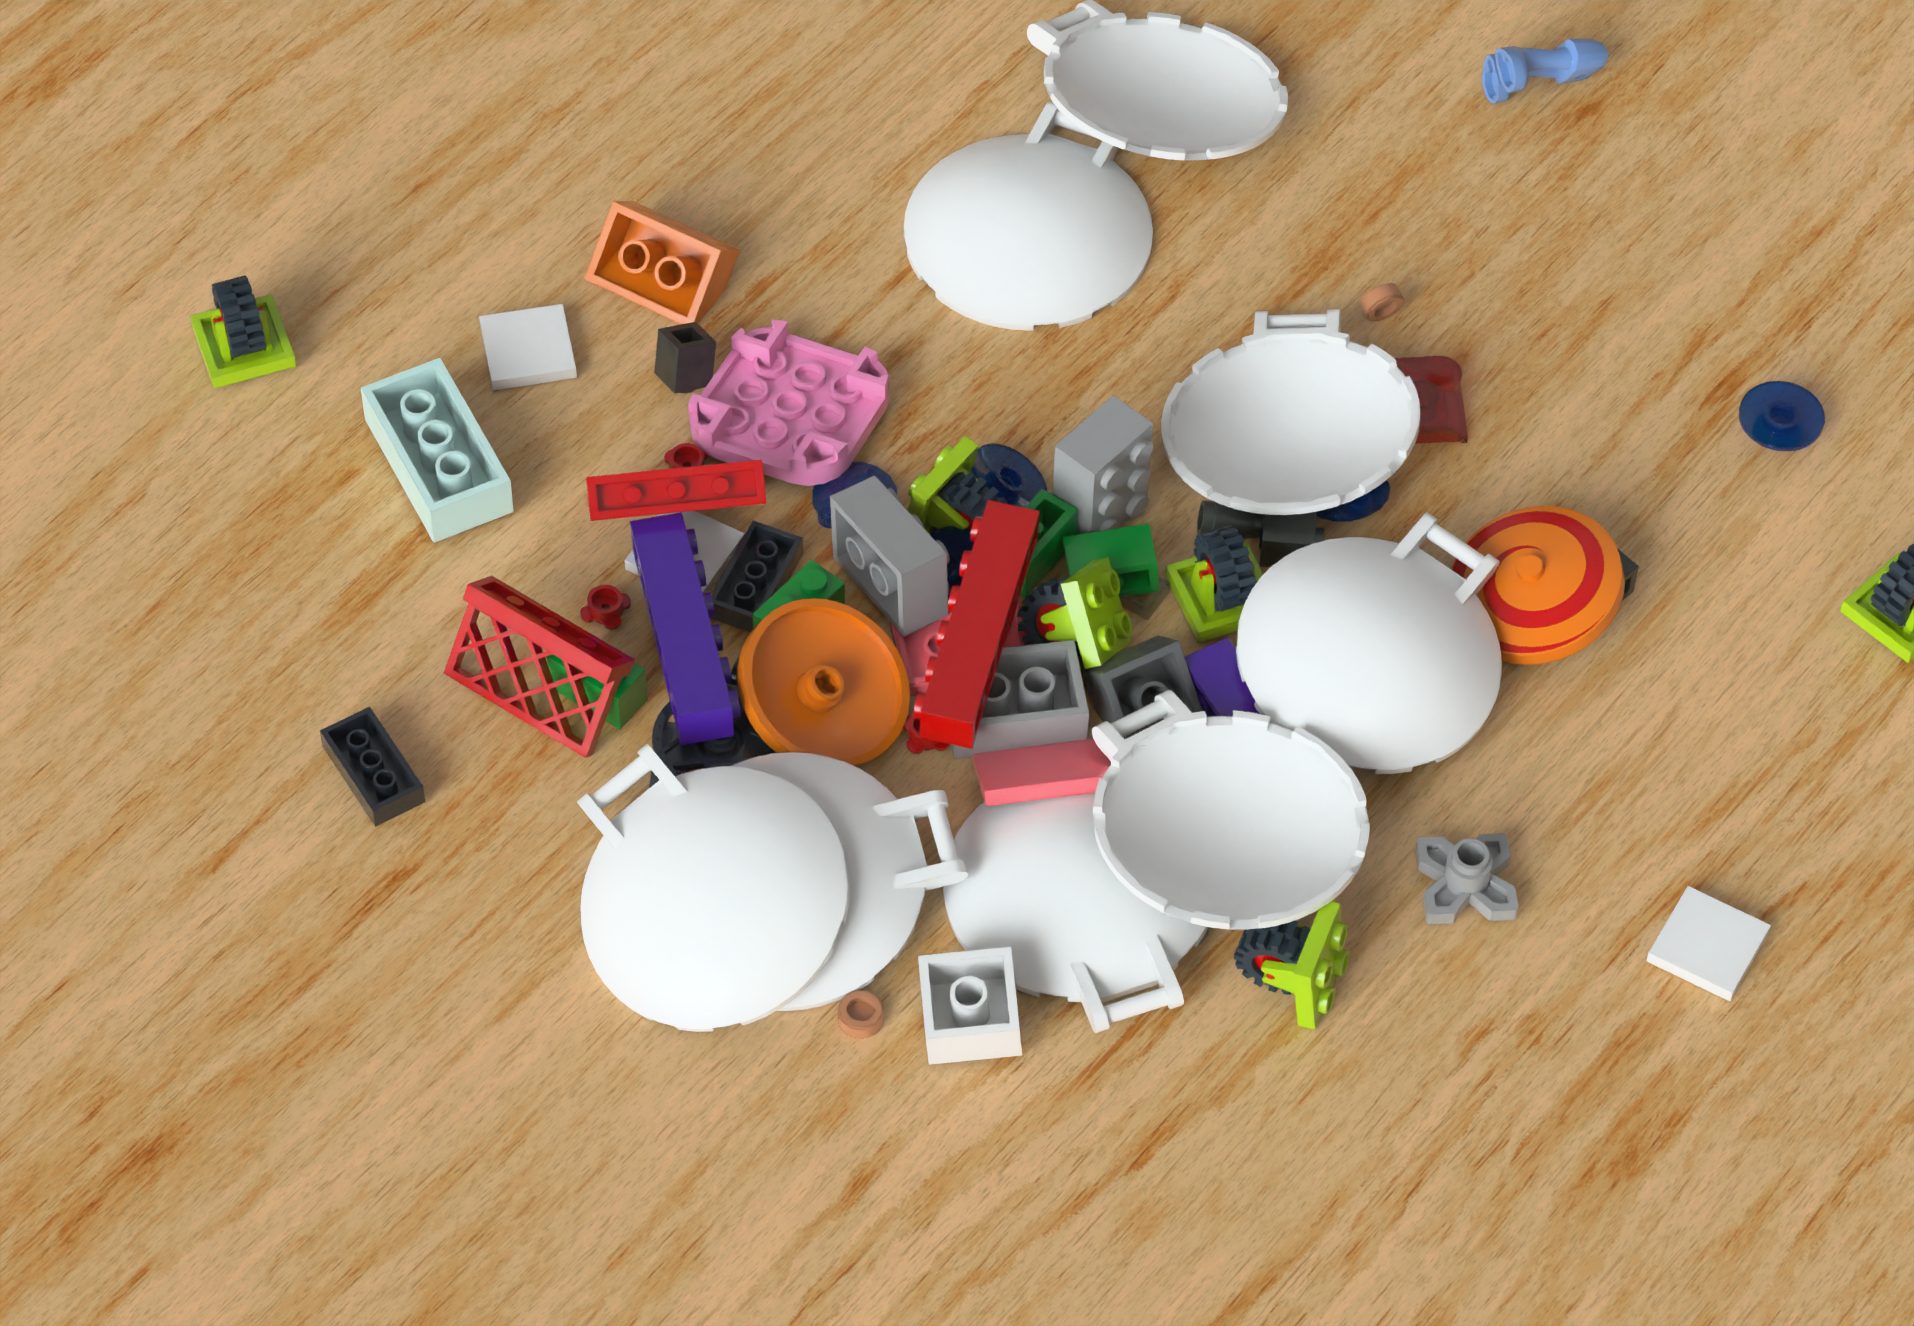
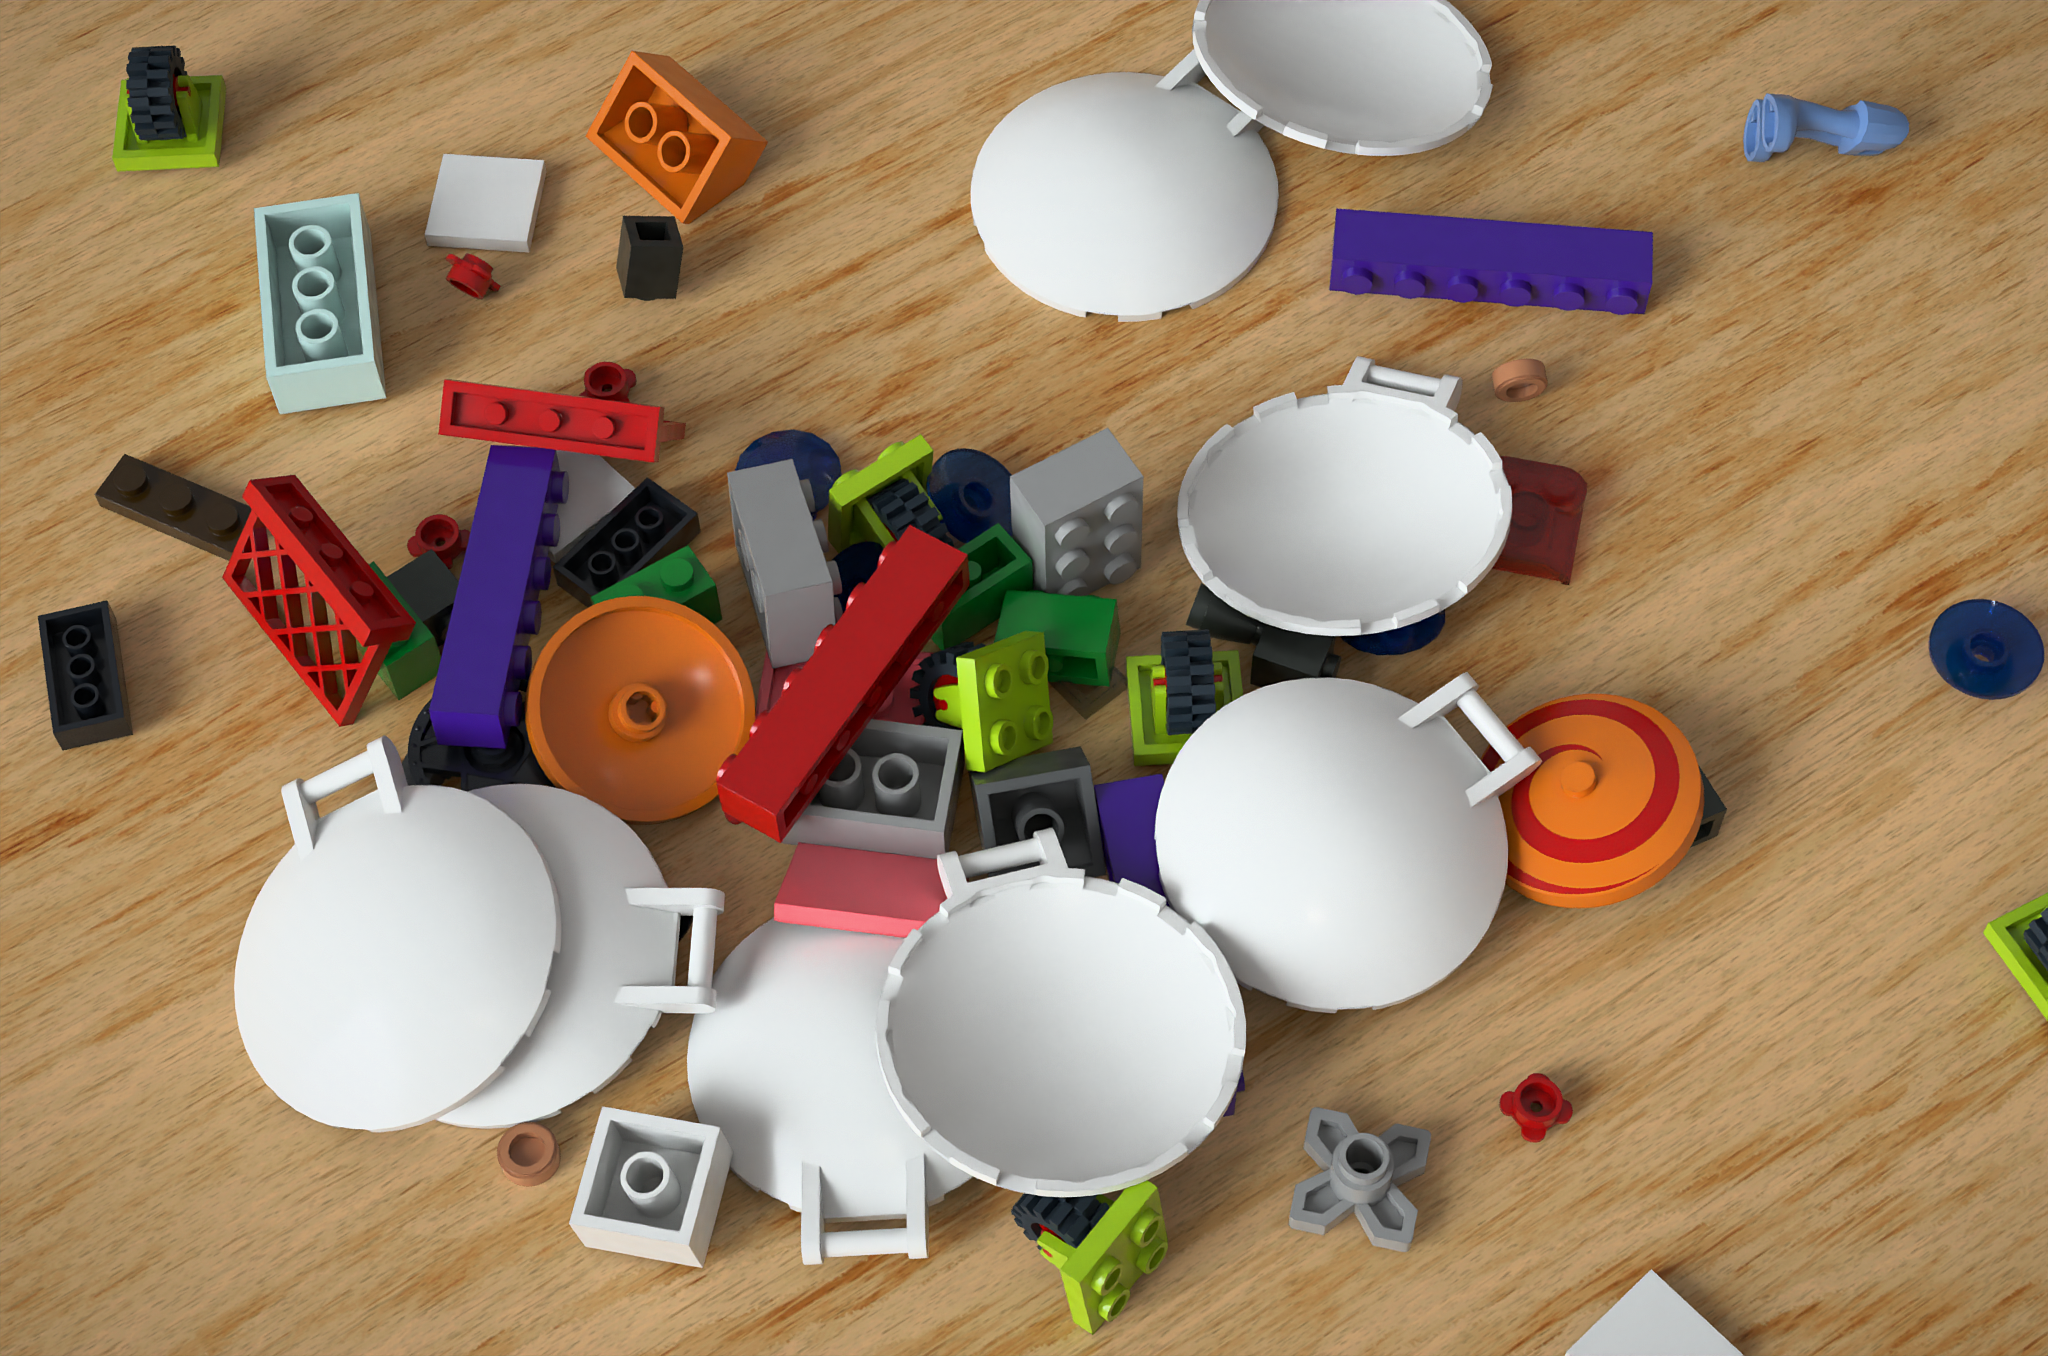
camera: 20 degrees right, 5 degrees up
(386, 630) = (174, 506): none -> dark brown plate
(544, 404) = (471, 275): none -> red plate
(628, 638) = (429, 591): none -> pearl dark grey brick
(790, 405) = (752, 345): bright pink tile -> none
(1328, 219) = (1491, 261): none -> dark purple brick
(1573, 791) = (1538, 1090): none -> red plate

